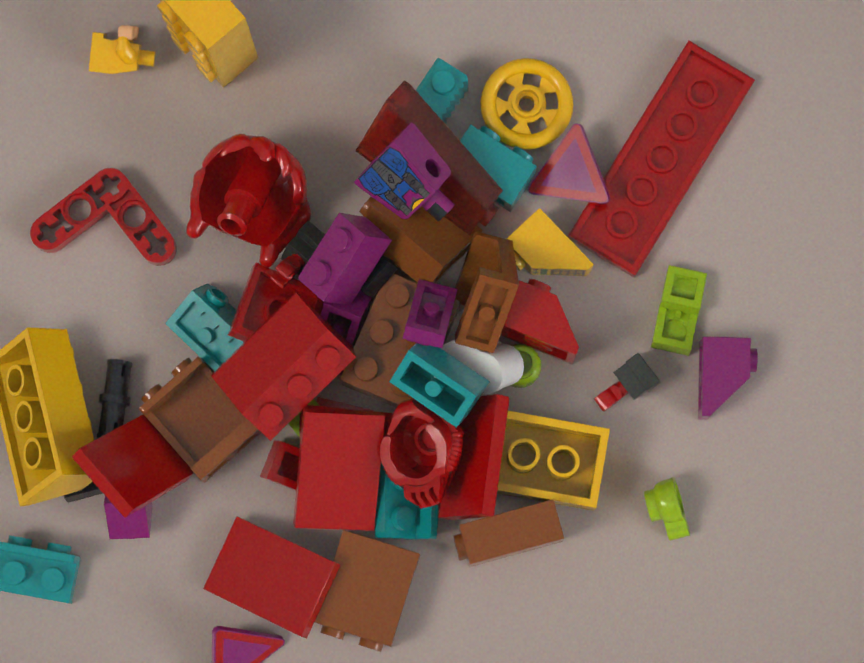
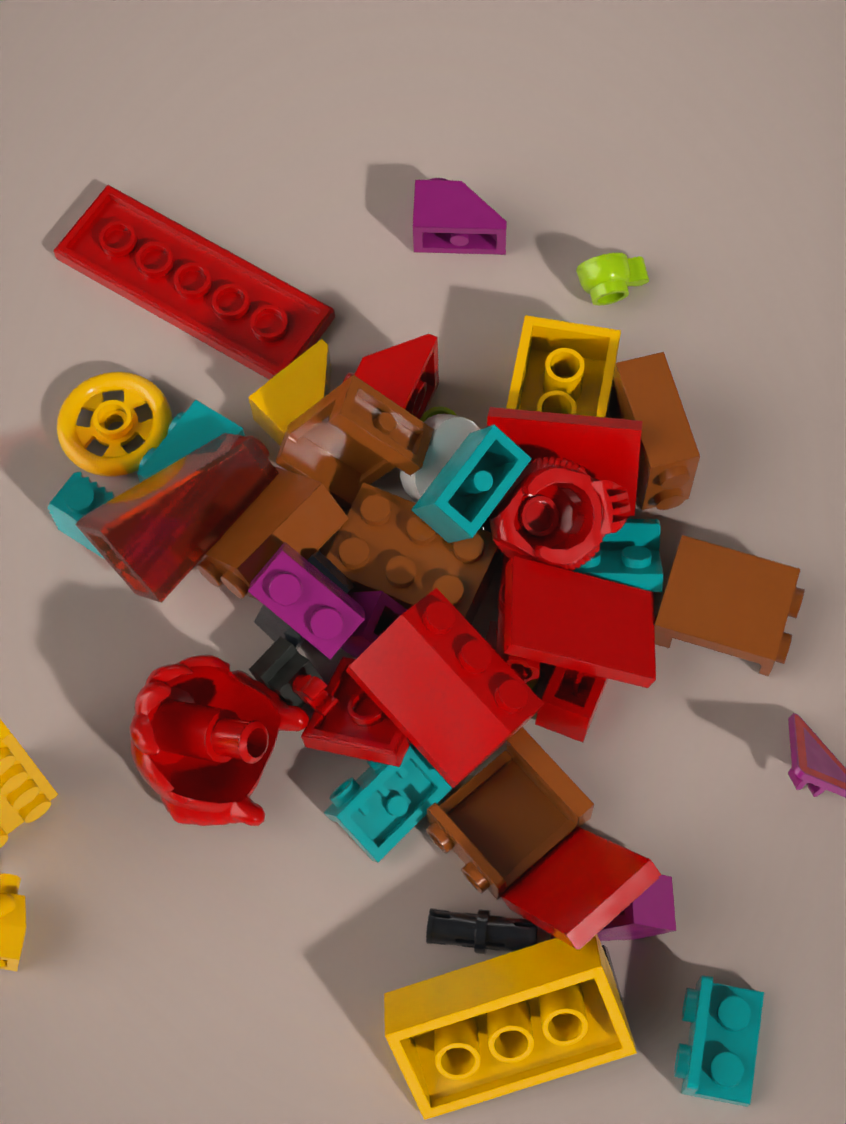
camera: 90 degrees left, 15 degrees down
(116, 206) = (215, 933): red beam -> none
(271, 577) = (718, 718): red tile -> none
(408, 176) = (201, 523): torso -> none
(430, 314) = (385, 501): magenta slope -> none
(571, 171) = (203, 367): piece -> none
(634, 378) = (458, 307): pearl dark grey piece -> none
(678, 310) = (369, 267): lime slope -> none

